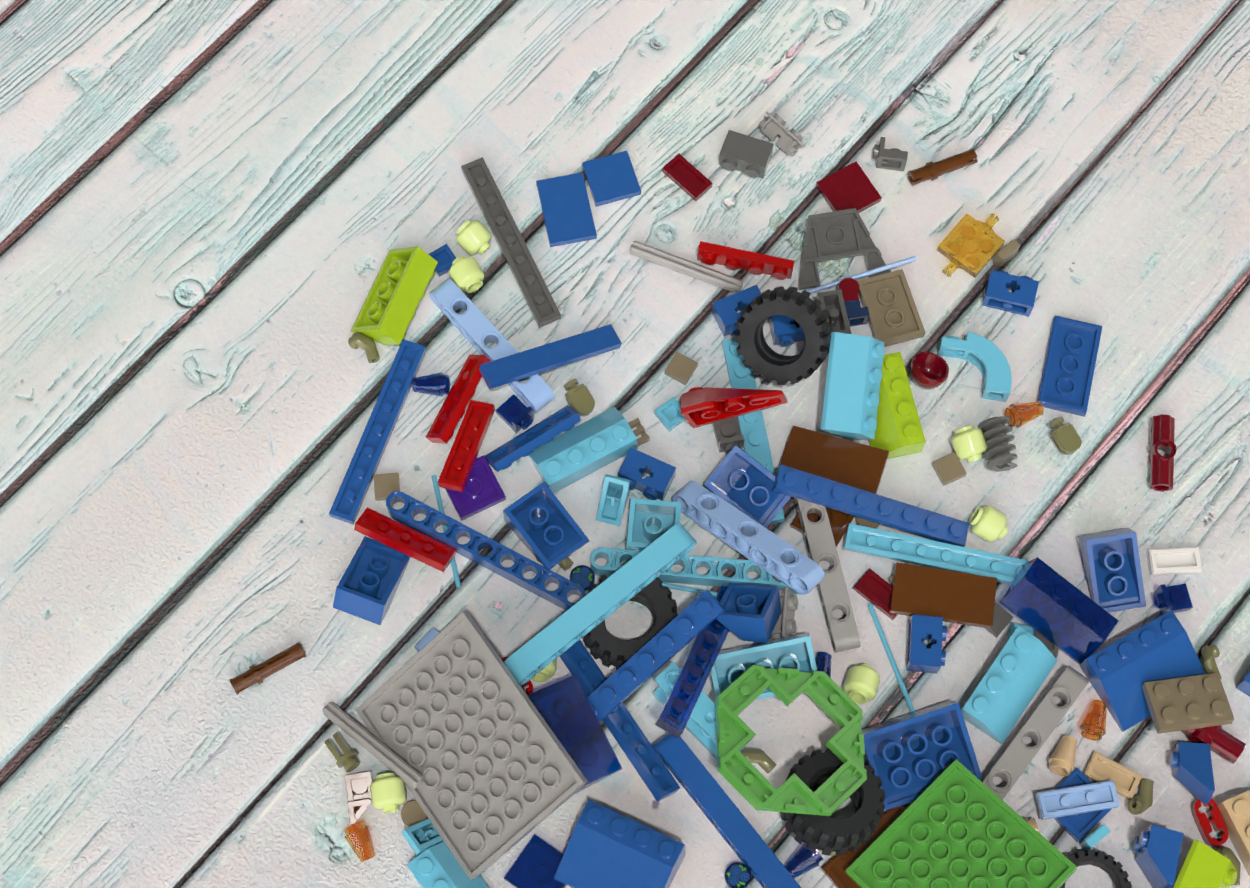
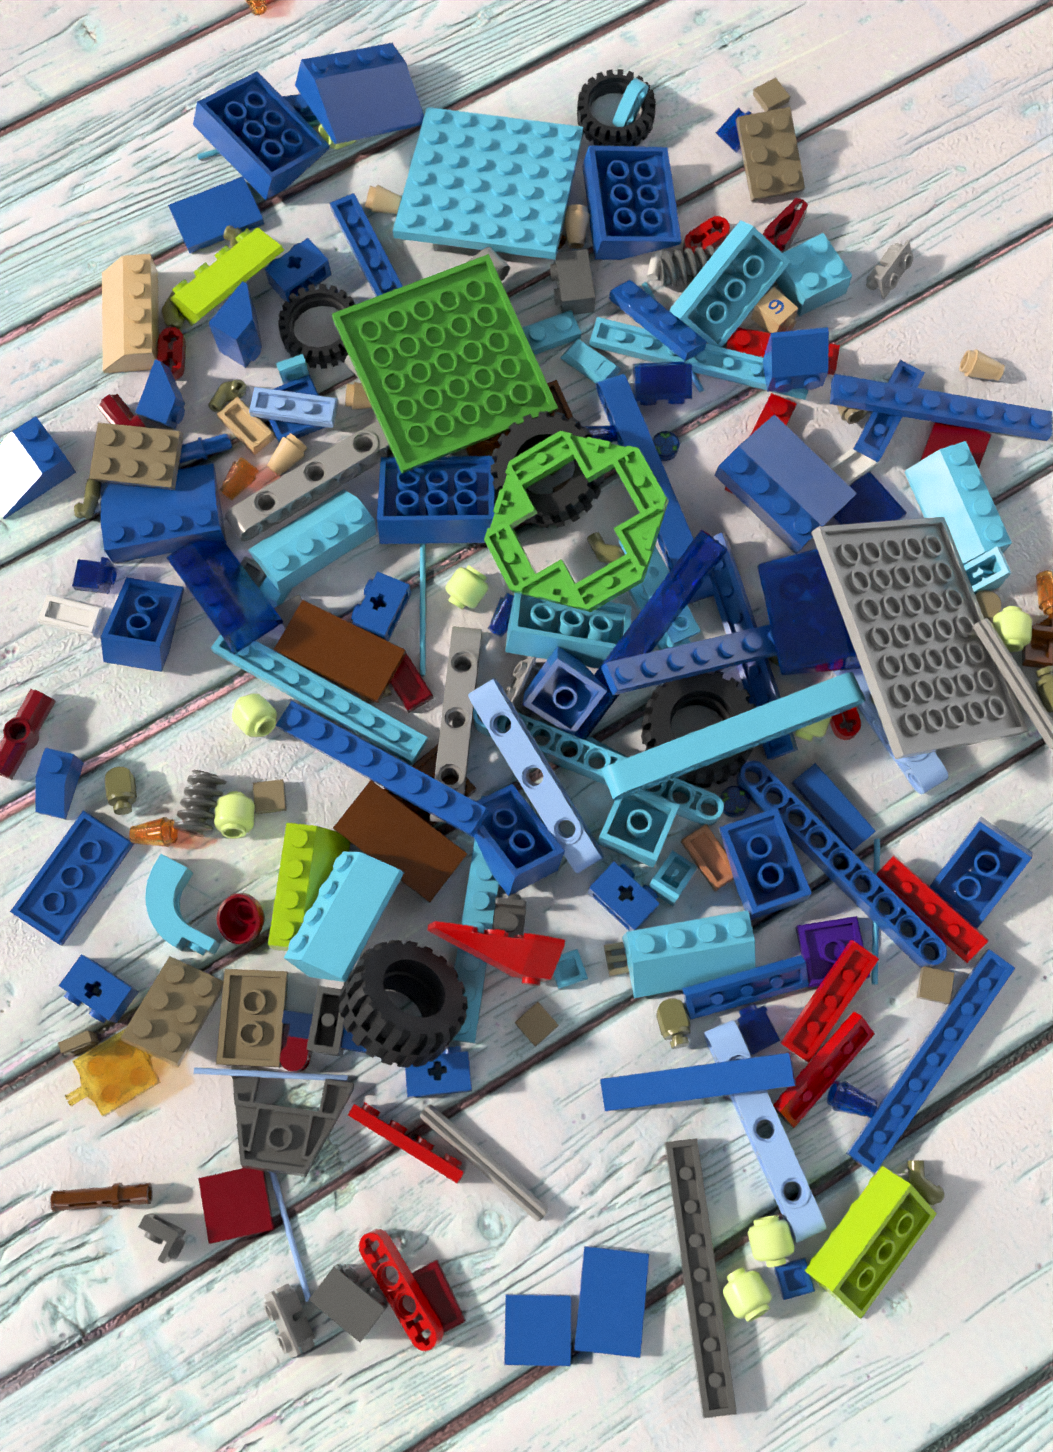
camera: 160 degrees left, 5 degrees up
(501, 598) = (833, 807): none -> blue tile
(596, 532) = (709, 857): none -> nougat tile
(688, 151) = (396, 1291): none -> red beam
(801, 183) = (290, 1236): none -> light blue piece
(949, 294) = (173, 1011): none -> dark tan plate
(1116, 427) = (56, 782): none -> blue slope
(1136, 740) = (204, 447): none -> blue axle

